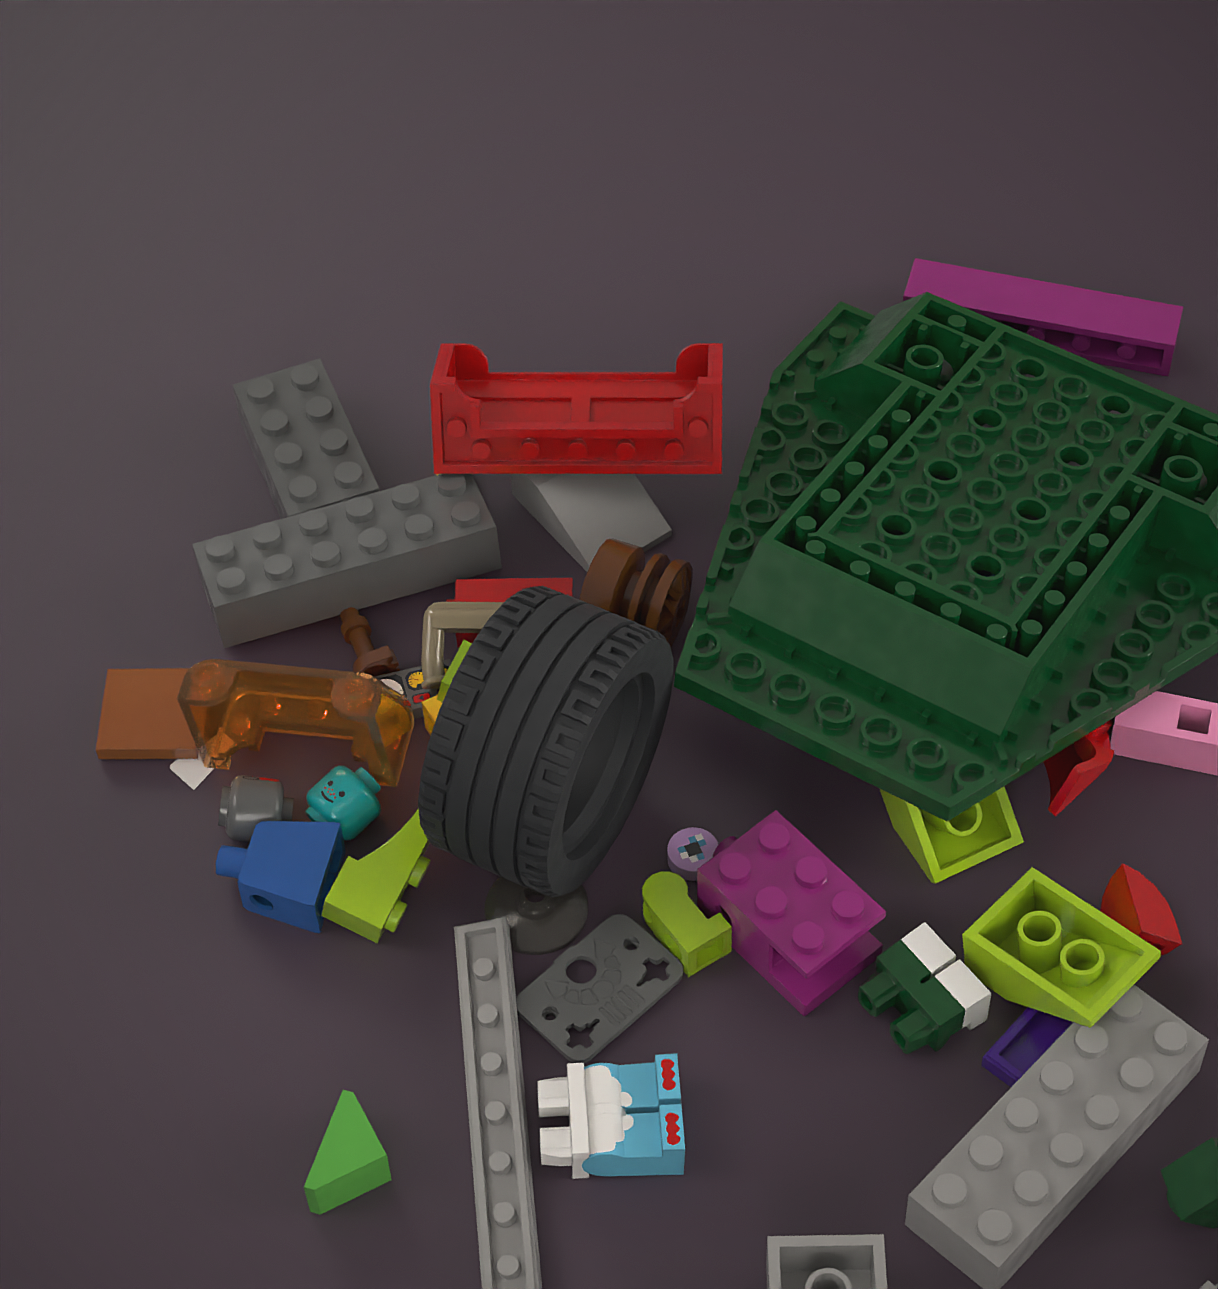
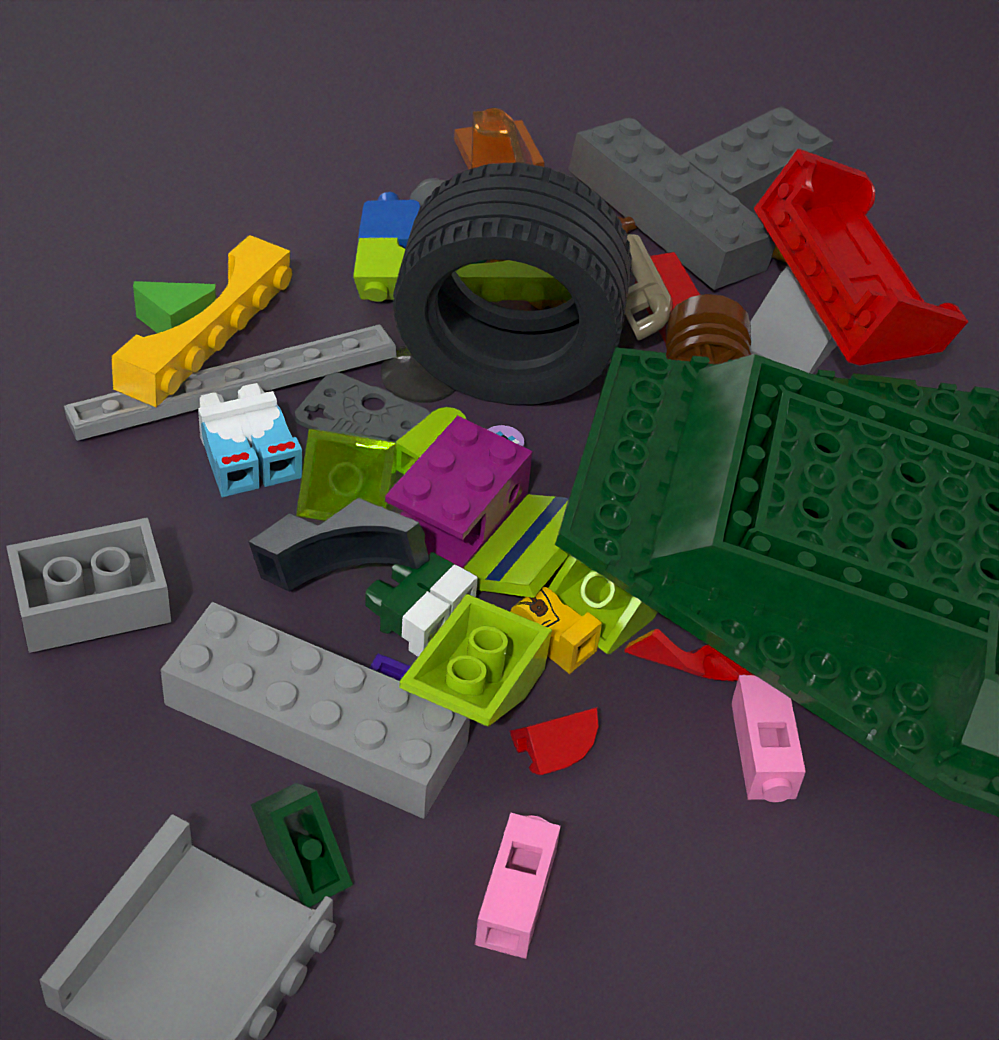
camera: 65 degrees right, 5 degrees down
(316, 1046) = (159, 363): none -> yellow arch
(723, 1016) = (342, 469): none -> clear neon green slope
(832, 1017) = (355, 535): none -> black arch
(882, 858) = (523, 549): none -> lime tile
(983, 877) = (567, 627): none -> yellow leg

